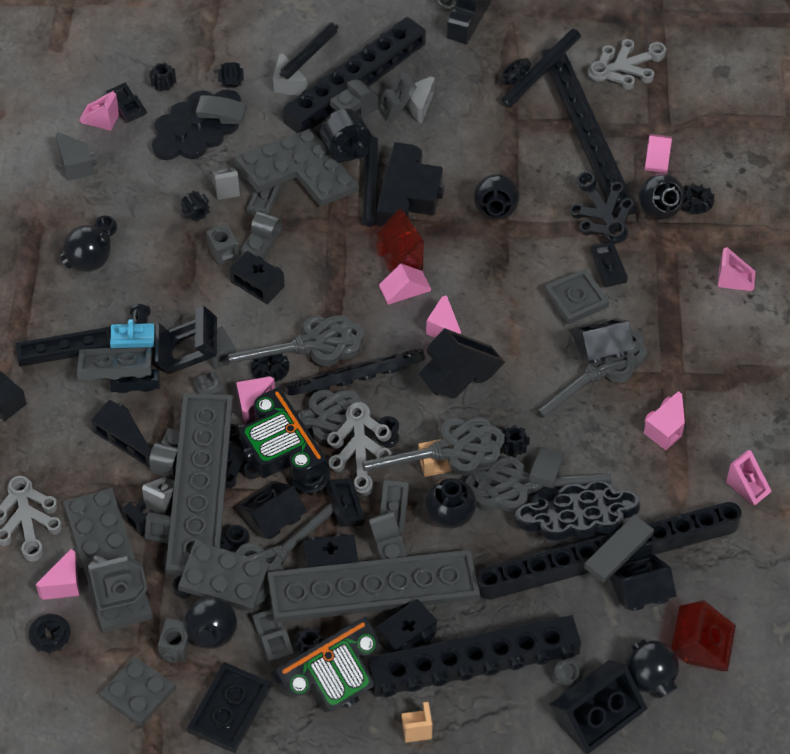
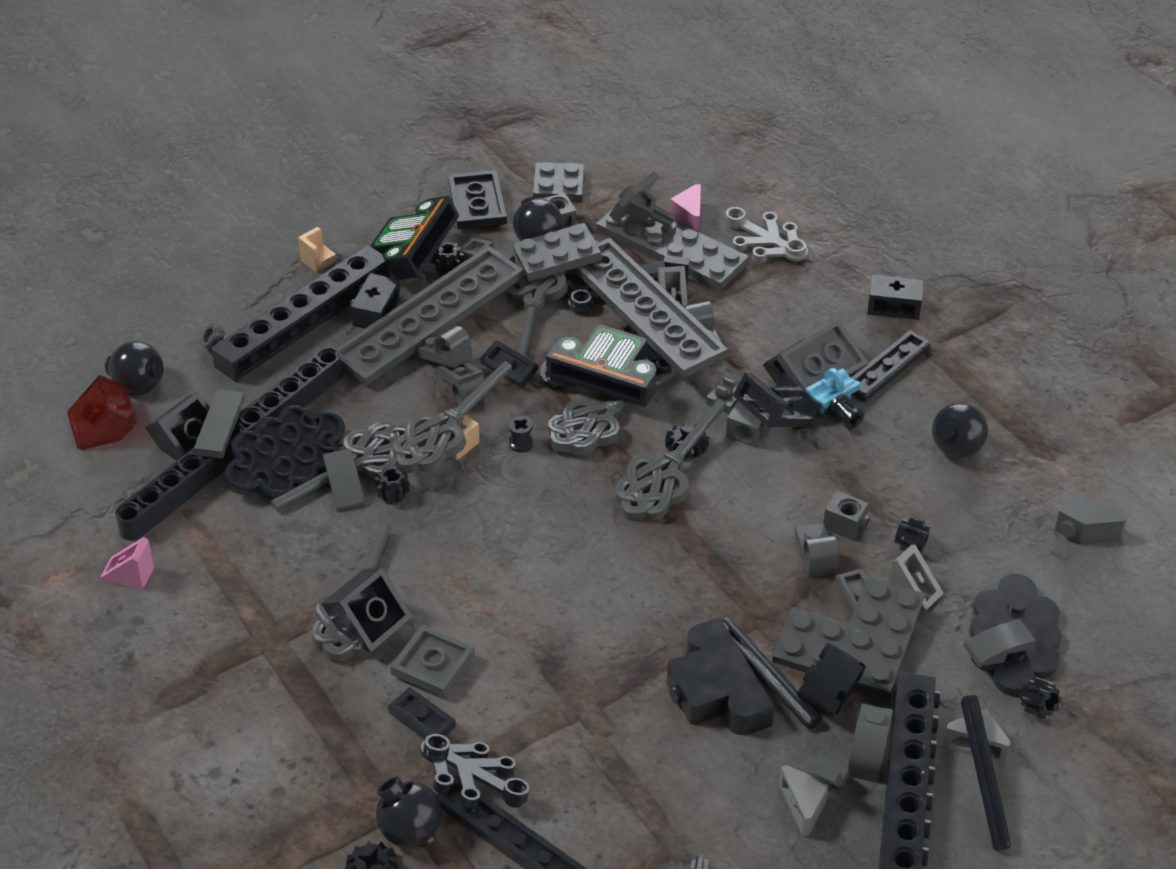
camera: 145 degrees right, 10 degrees down
(53, 623) = (672, 183): black gear -> none
(101, 112) = (1119, 581): bright pink slope -> none
(106, 224) = (977, 477): black plate -> none
(118, 427) = (754, 320): black slope -> none
(128, 104) = (1105, 612): black slope -> none
(162, 77) = (1109, 657): black gear -> none
(248, 392) = (675, 399): bright pink slope -> none
(257, 277) = (778, 502): black brick -> none
(271, 509) = (567, 317): black slope -> none
(340, 546) = (487, 319): black brick -> none
(359, 443) = (554, 418): light grey plant -> none
(364, 370) = (597, 470): black plate -> none
(400, 243) = (659, 602): clear red slope -> none
(403, 284) = (624, 581): bright pink slope -> none
(441, 318) = (548, 555): bright pink slope -> none
(451, 503) = (407, 390): black brick -> none
(457, 363) = (491, 493): black brick -> none
(496, 197) = (602, 703): black brick -> none
(599, 705) = (176, 323): black slope -> none
(667, 422) = (246, 576): bright pink slope -> none
(735, 272) = (264, 782): bright pink slope -> none

